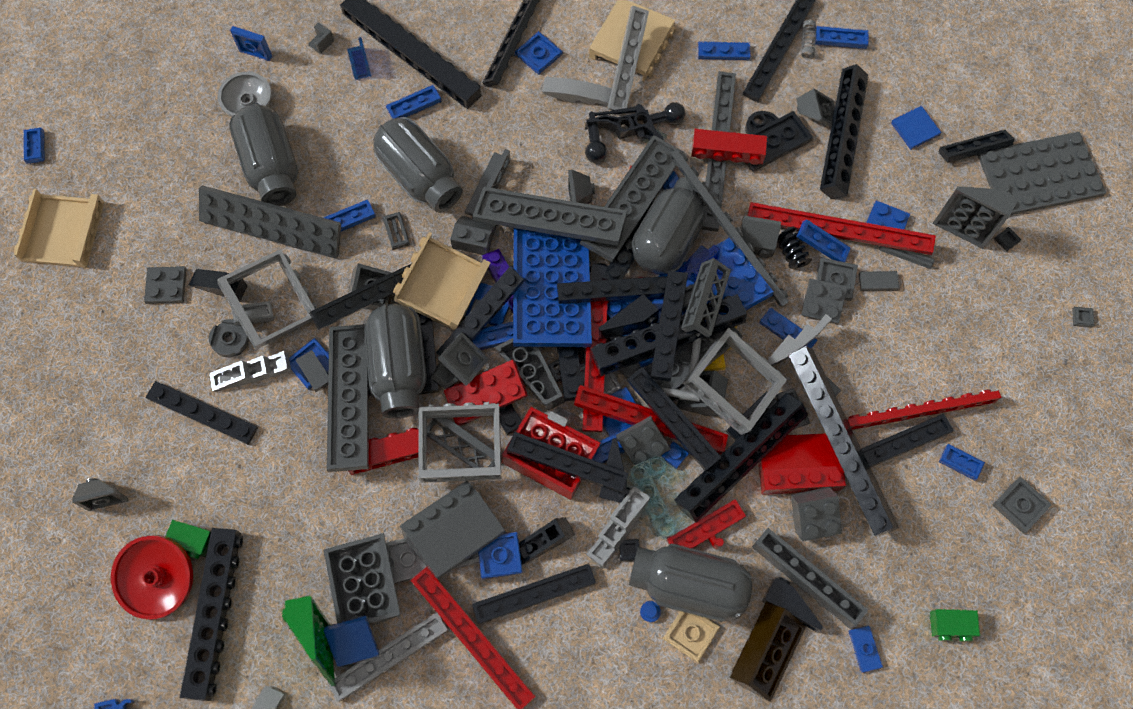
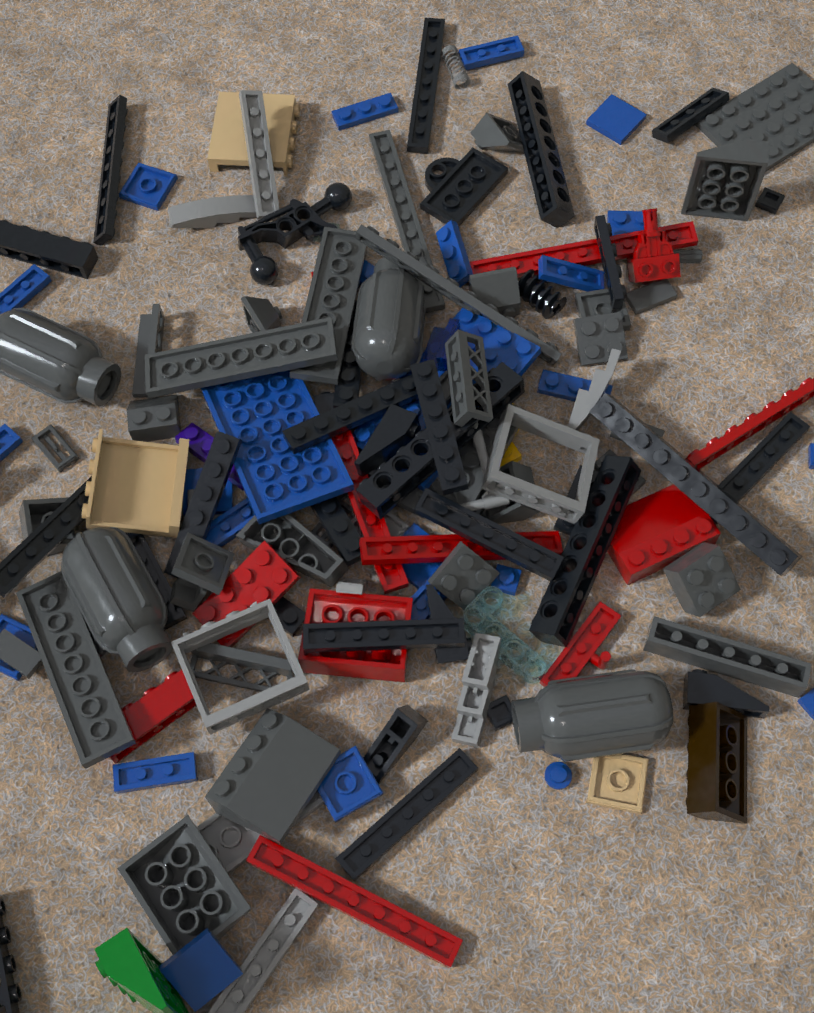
camera: 20 degrees left, 5 degrees down
(374, 493) = (155, 772): none -> blue plate
(729, 146) = (417, 208): red brick -> none
(742, 192) = (454, 253): none -> blue plate
(857, 237) = (611, 270): none -> black plate
(892, 253) = (653, 254): none -> red brick

